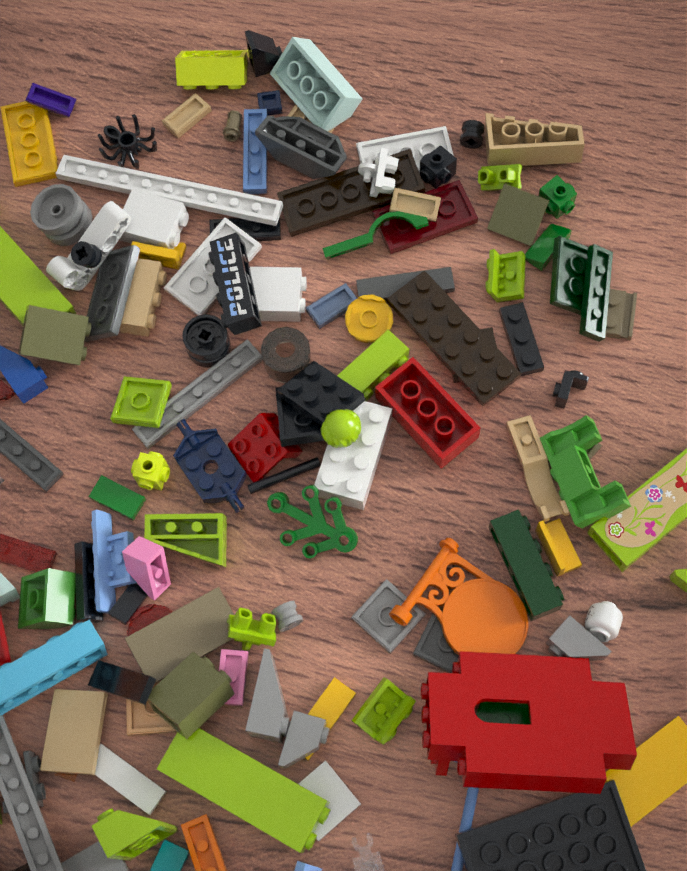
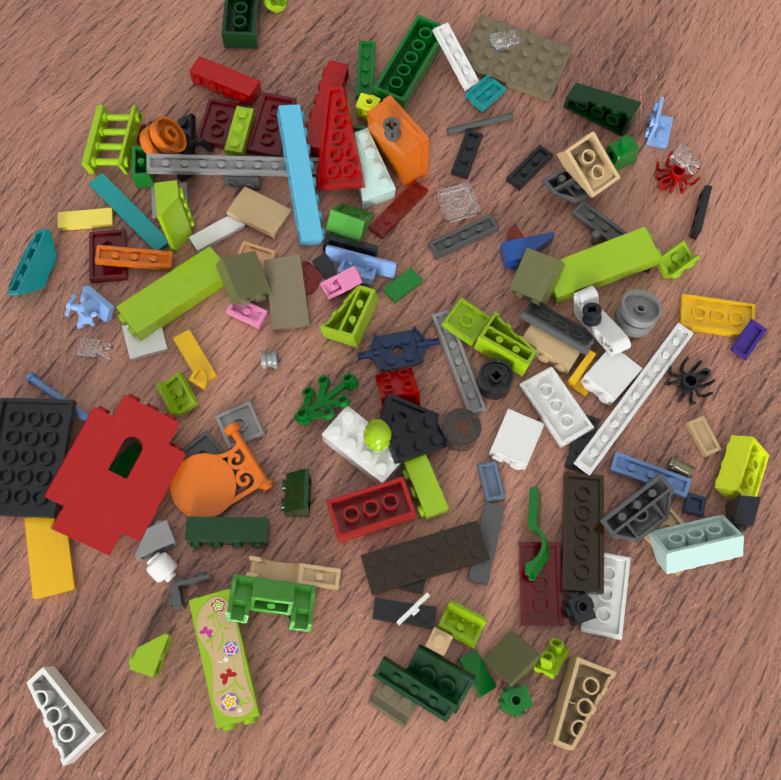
camera: 105 degrees right, 0 degrees up
(122, 682) = (272, 243): black tile -> none
(155, 476) = (410, 309): neon yellow brick -> none
(159, 344) = (502, 343): none -> lime wedge
(234, 284) = (529, 409): black brick -> none
(252, 631) = (269, 332): lime hips -> none
(268, 710) = (216, 324): light grey slope -> none
(284, 475) = (371, 395): black bar -> none
(303, 738) = (184, 336): light grey slope -> none
(349, 693) = (199, 378): none -> yellow tile
(368, 318) = (467, 502): yellow tile -> none
(382, 164) = (594, 562): white hips -> none
(415, 203) = (550, 575): tan tile -> none
(445, 500) = (297, 494): none -> dark green slope
(472, 134) = (604, 656): black wheel -> none
(517, 323) = (413, 610): none -> white piece
(537, 290) = (438, 641): none -> tan brick
(558, 547) = (229, 561): yellow panel -> none
(570, 379) = (347, 623): black bracket -> none
(608, 587) = (176, 597): none -> dark grey bracket

